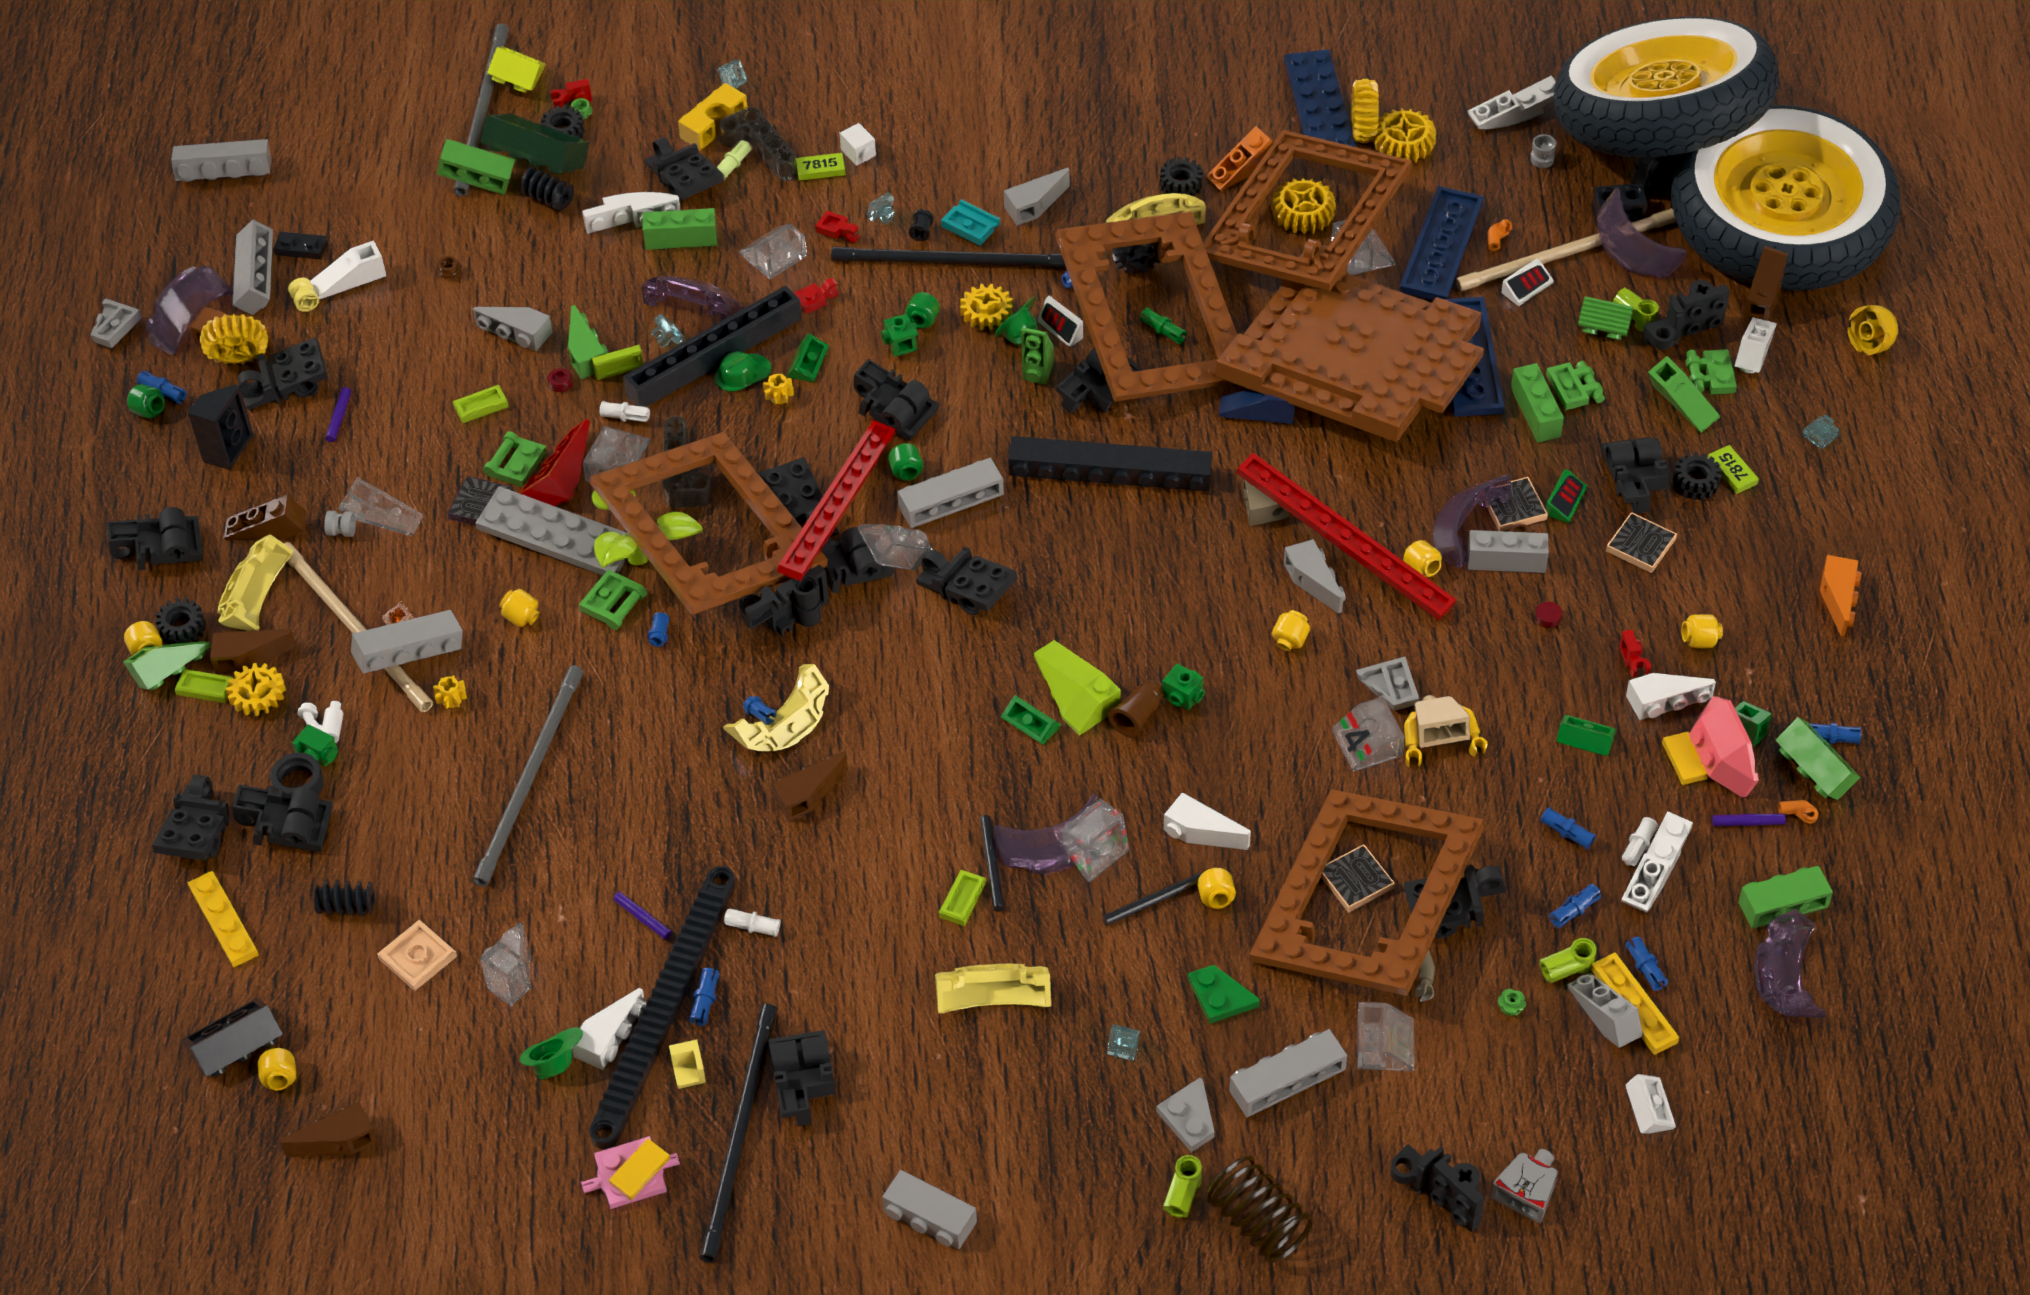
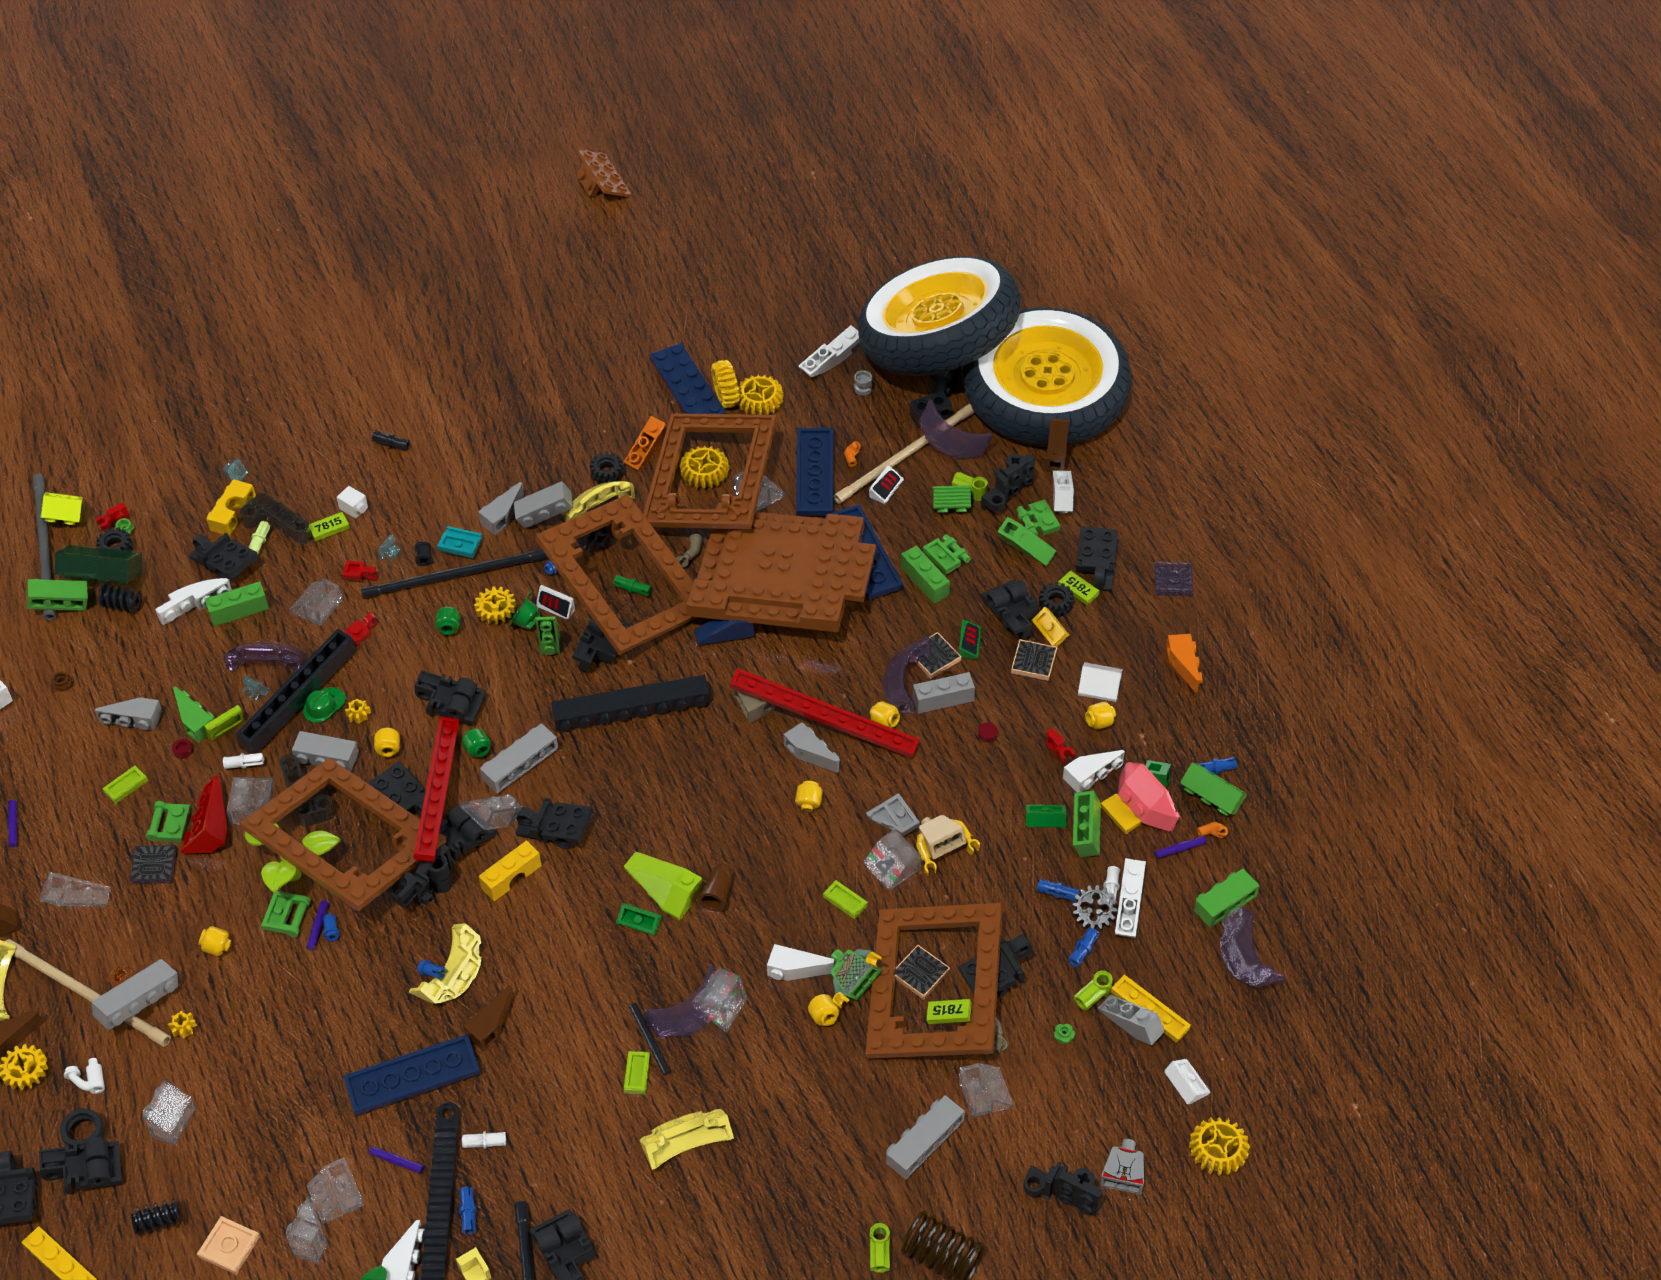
camera: 20 degrees left, 0 degrees up
(317, 744) = (89, 1098): green brick -> none
(340, 523) = (45, 912): light grey wheel -> none
(398, 785) = (168, 1113): none -> clear slope
(488, 863) = (260, 1153): dark grey piece -> none
(545, 529) = (214, 871): light grey plate -> none
(557, 928) = (334, 1191): none -> clear slope
(644, 623) = (317, 925): none -> dark purple piece
(694, 823) = (411, 1074): none -> dark blue plate
(712, 417) = (317, 748): none -> light grey brick
(799, 433) = (387, 742): none -> yellow head
(808, 359) = (371, 681): green slope -> none
(875, 624) = (496, 879): none -> yellow arch
(900, 335) = (437, 644): green brick -> none
(929, 83) = (390, 440): none -> black pin
(1085, 201) = (543, 504): none -> light grey brick
(1123, 1042) = (797, 1150): clear light blue tile -> none
(1151, 899) = (778, 1032): black bar -> none
(1183, 687) = (746, 862): green brick -> none
(1189, 1115) = (863, 1191): light grey wing -> none
(1220, 994) = (853, 1091): green wing -> none
(1260, 293) = (695, 546): none -> dark tan arm
(1267, 855) = (853, 973): none -> torso
(1292, 766) = (845, 899): none -> lime tile
(1368, 930) = (949, 1011): none -> lime tile
(1621, 855) = (1102, 917): none -> gear
(1633, 757) = (1086, 823): none -> bright green brick
(1646, 963) = (1148, 976): blue pin -> none
(1676, 507) = (1050, 627): none -> yellow plate
(1676, 1186) = (1223, 1136): none -> yellow gear
(1717, 590) = (1100, 682): none -> white slope
(1771, 434) = (1097, 555): none -> black plate
(1821, 431) = (1129, 543): clear light blue tile -> none
(1863, 489) = (1173, 579): none -> clear purple tile
(1872, 329) = (1140, 459): yellow cylinder -> none

